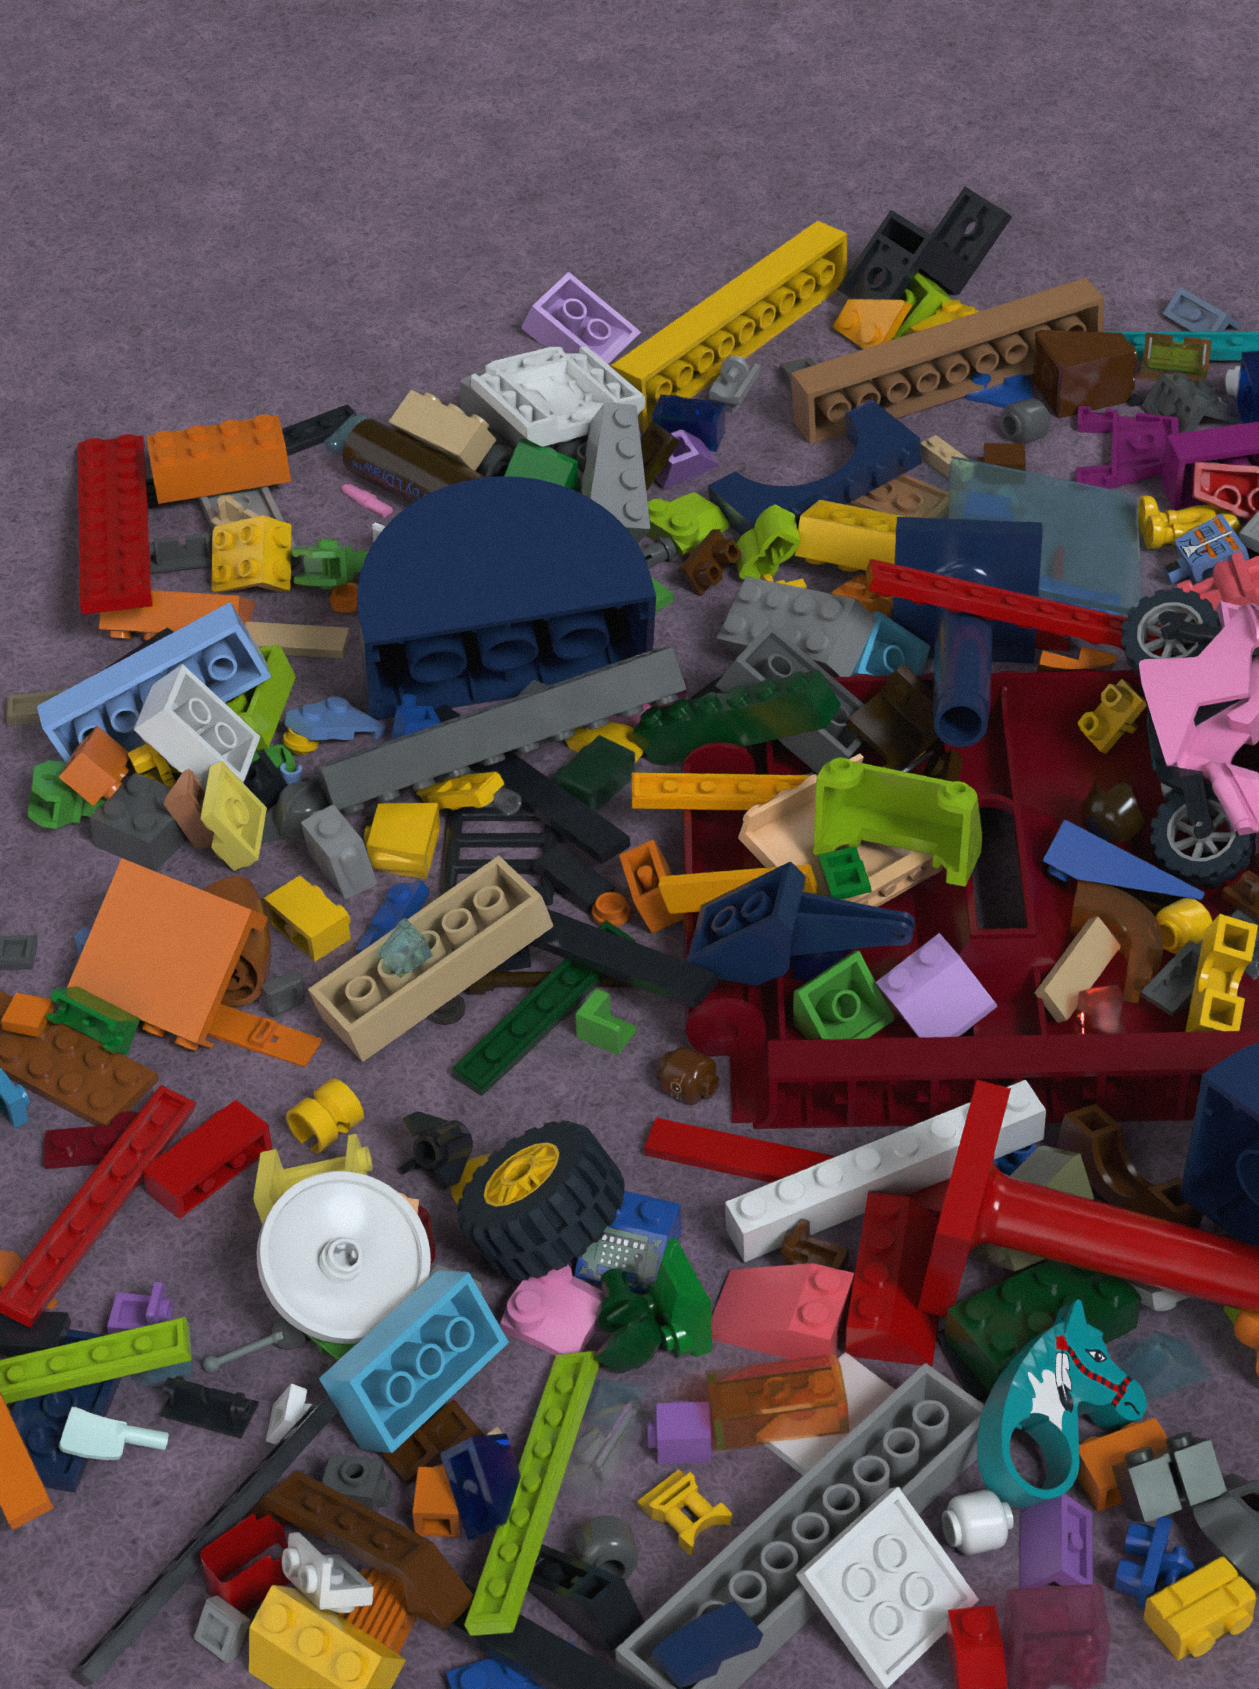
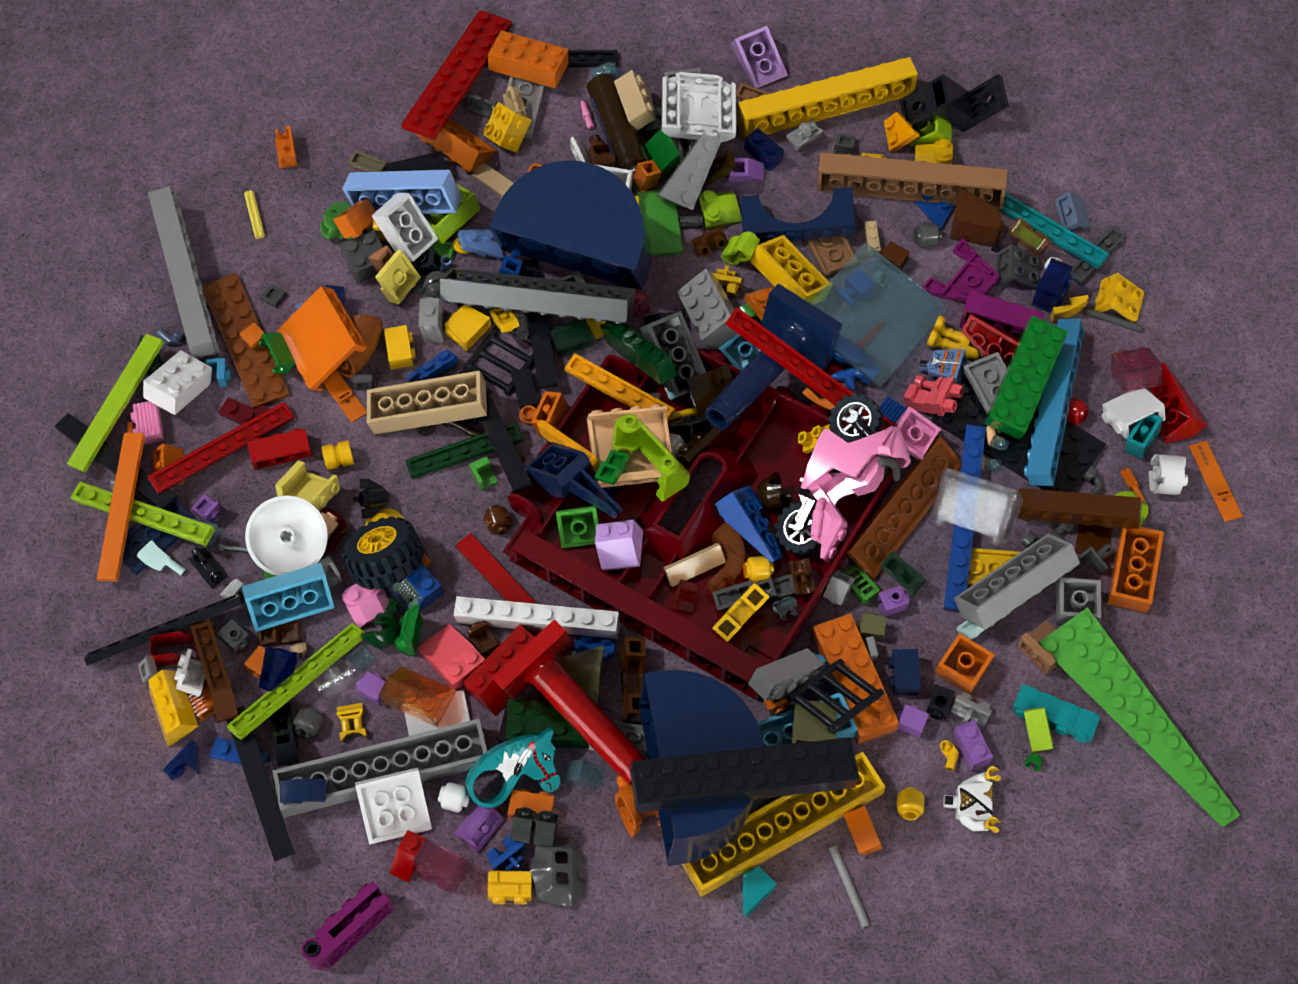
camera: 30 degrees right, 20 degrees up
(328, 563) = (538, 149): bright green hinge -> none
(405, 948) = (411, 396): clear light blue slope -> none

